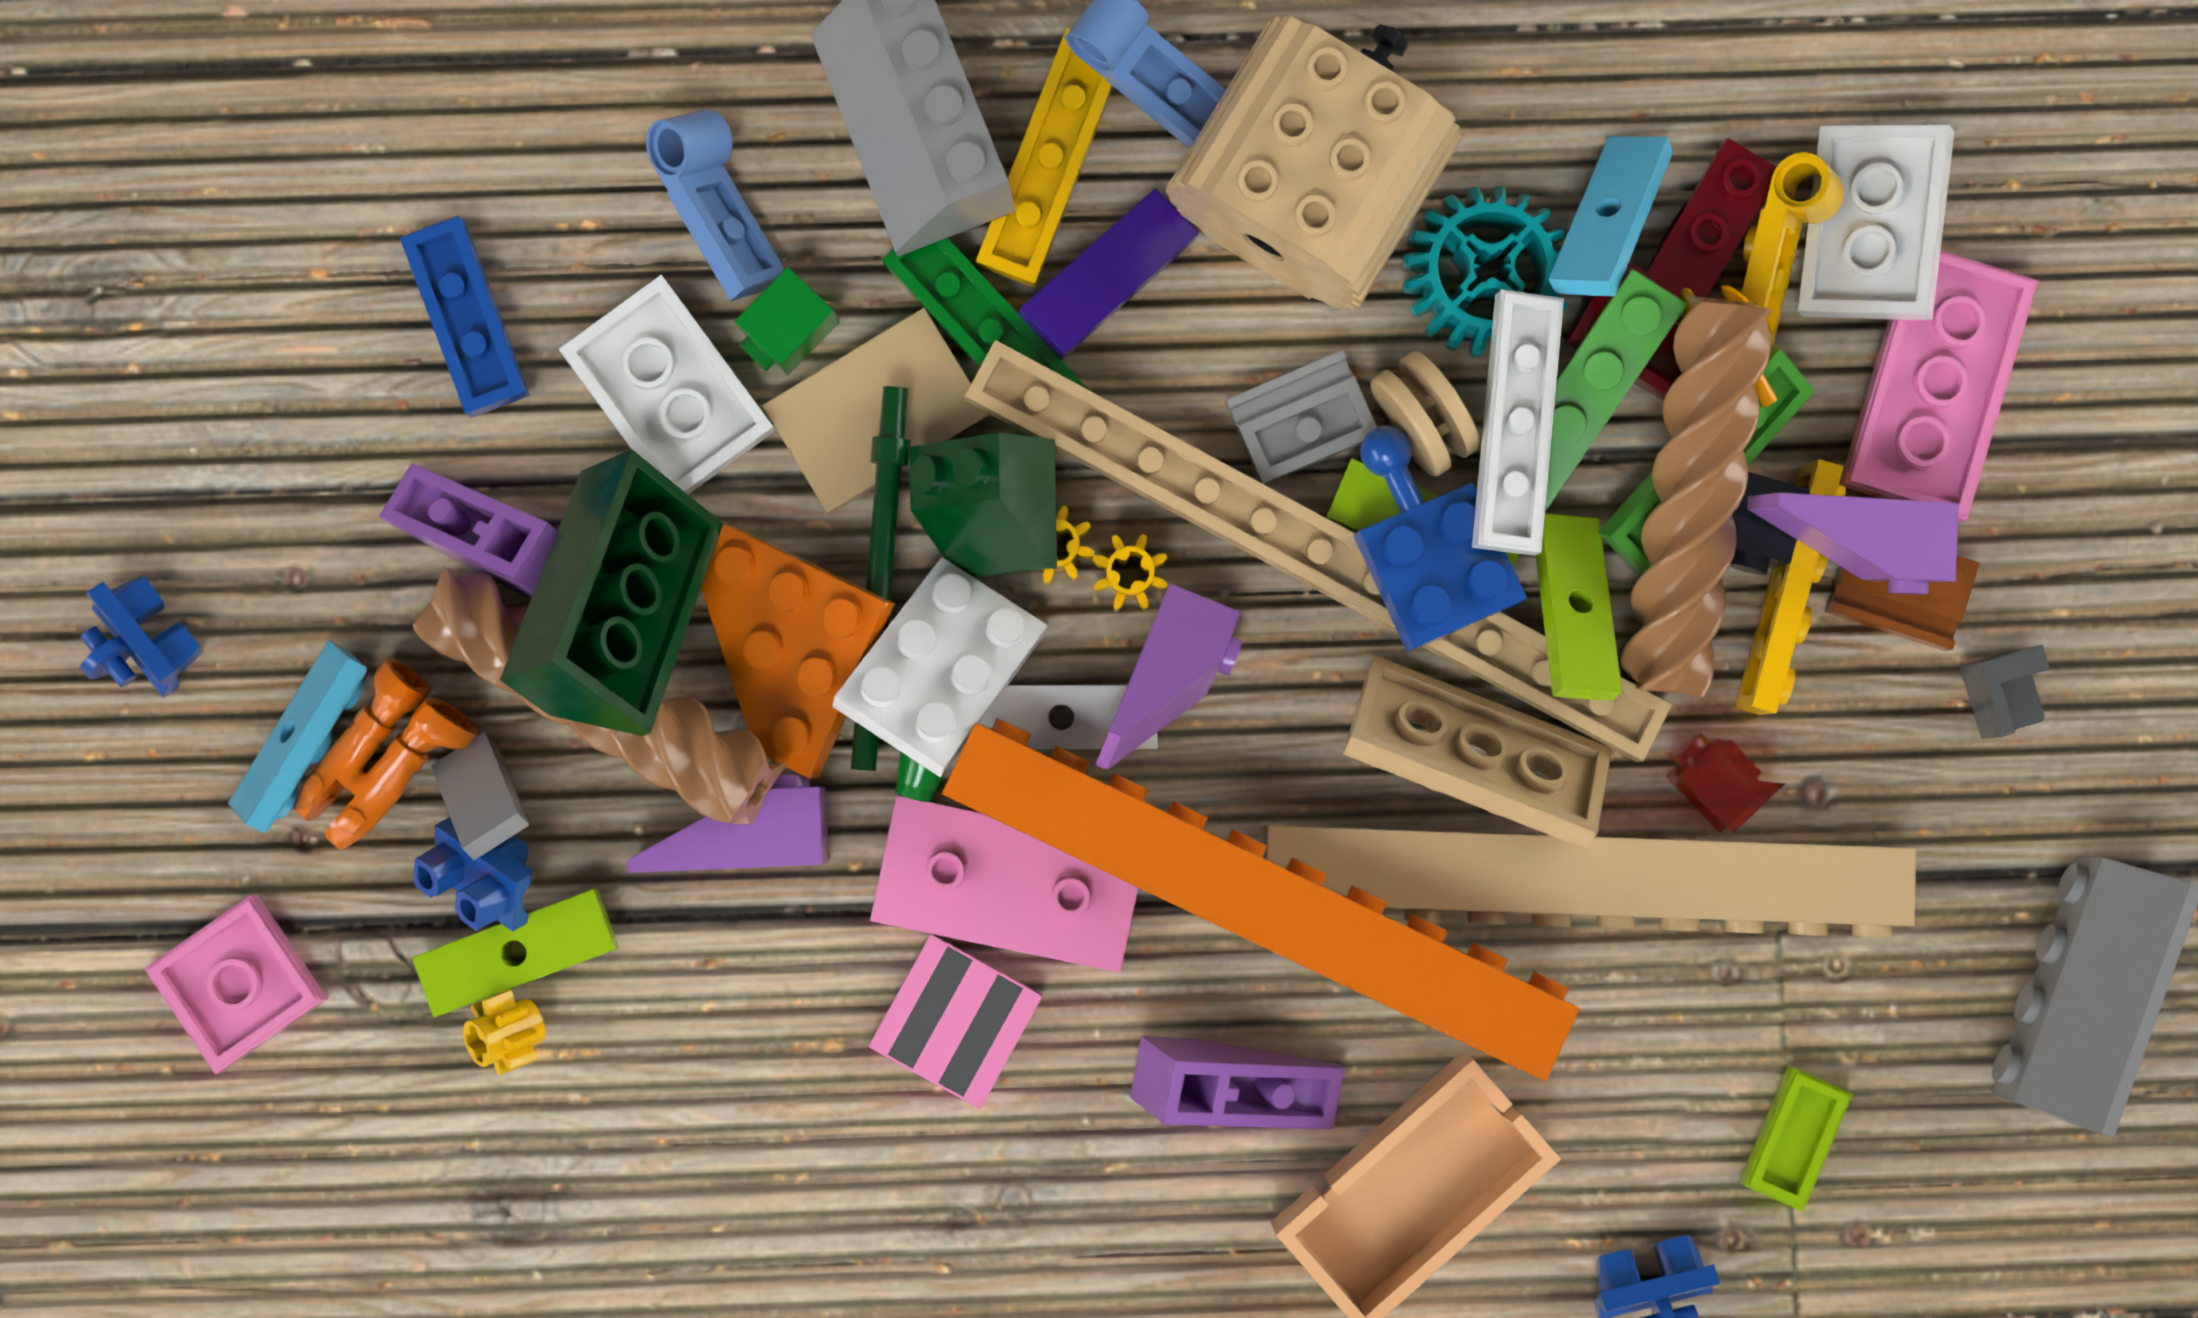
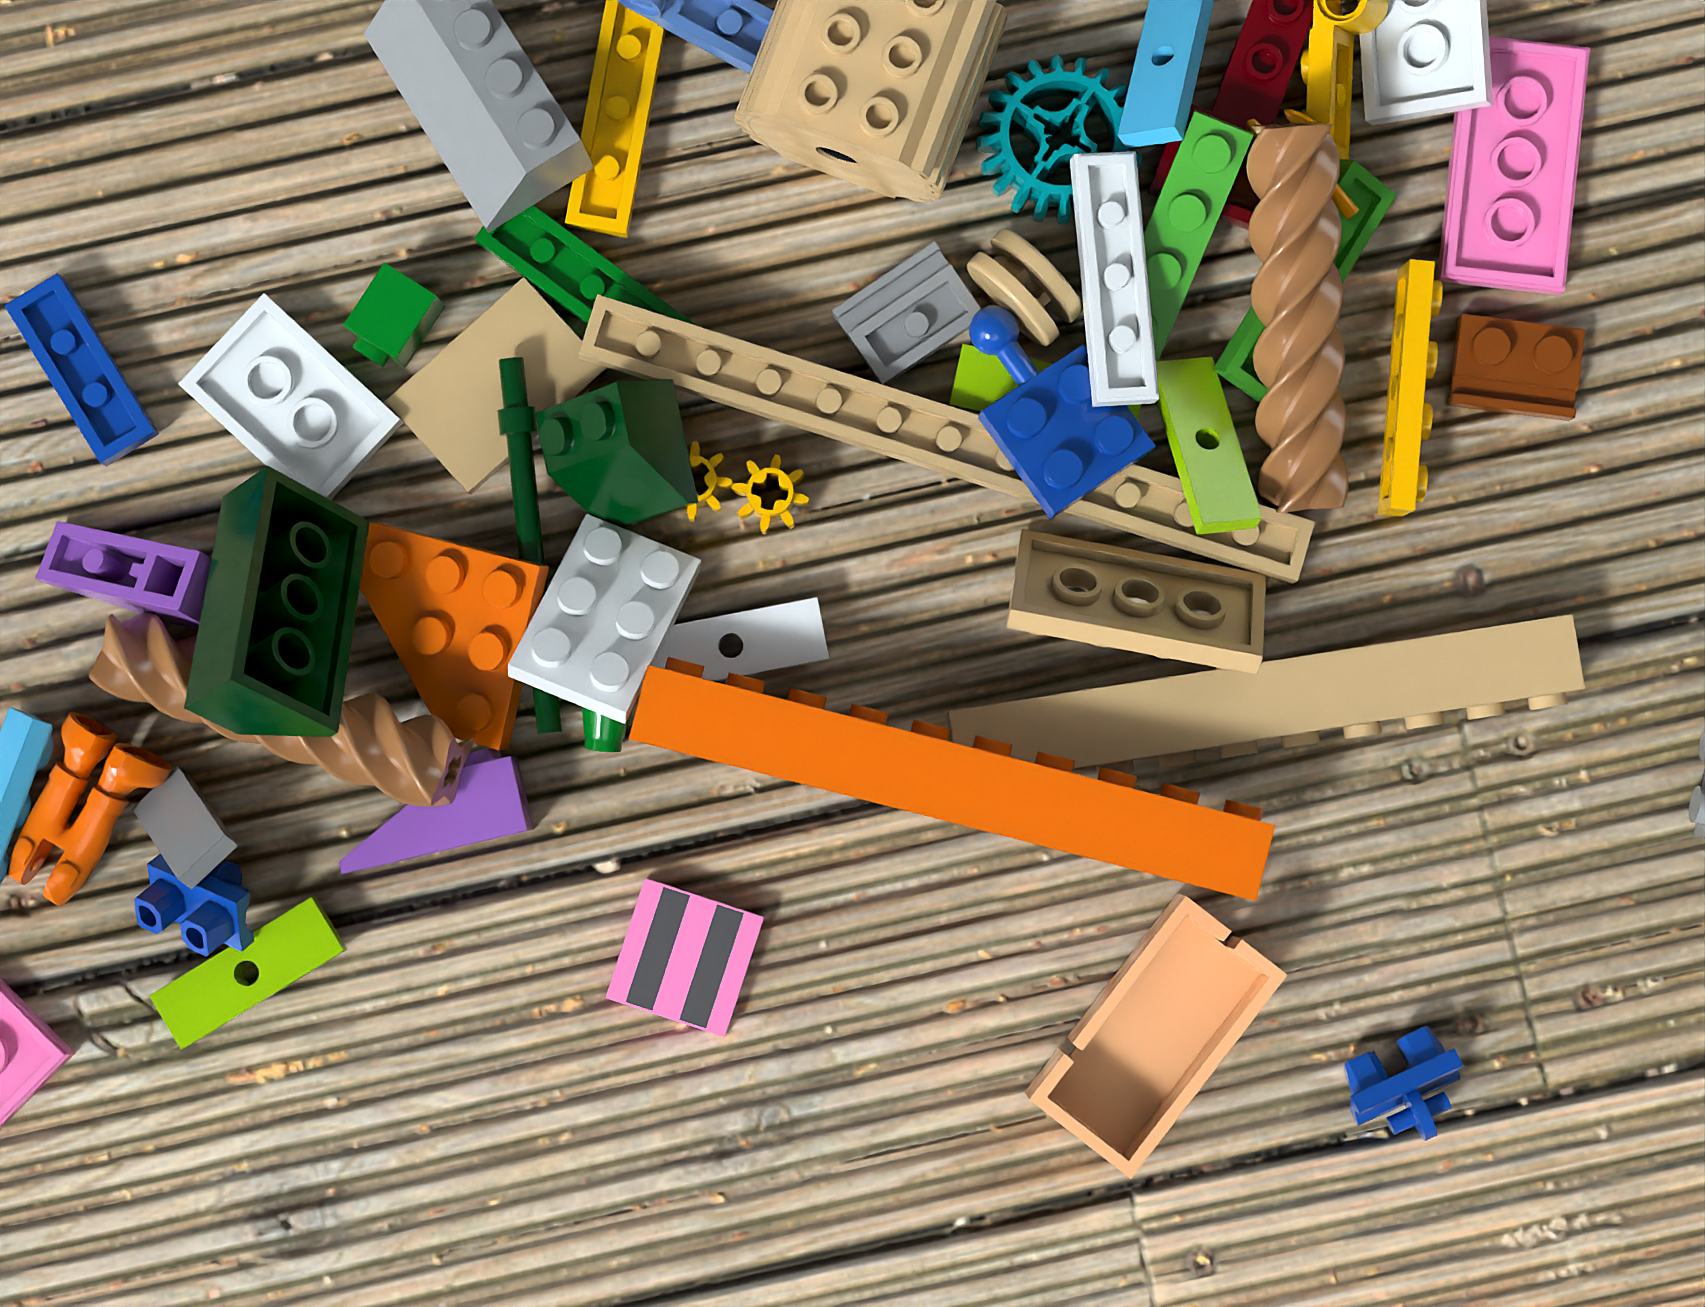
camera: 10 degrees left, 0 degrees up
(504, 1032) = (252, 1050): yellow gear -> none
(690, 161) = (271, 179): medium blue plate -> none
(999, 888) = (702, 821): bright pink plate -> none
(1108, 274) = (695, 210): dark purple tile -> none
(1175, 669) = (829, 578): medium lavender slope -> none
(1233, 1085) = (963, 967): medium lavender slope -> none
(1720, 781) = (1374, 586): clear red window -> none
(1758, 541) = (1371, 330): black brick -> none
(1795, 1138) = (1513, 915): lime tile -> none
(1872, 537) = (1472, 324): medium lavender slope -> none
(2005, 691) = (1633, 448): dark grey panel -> none

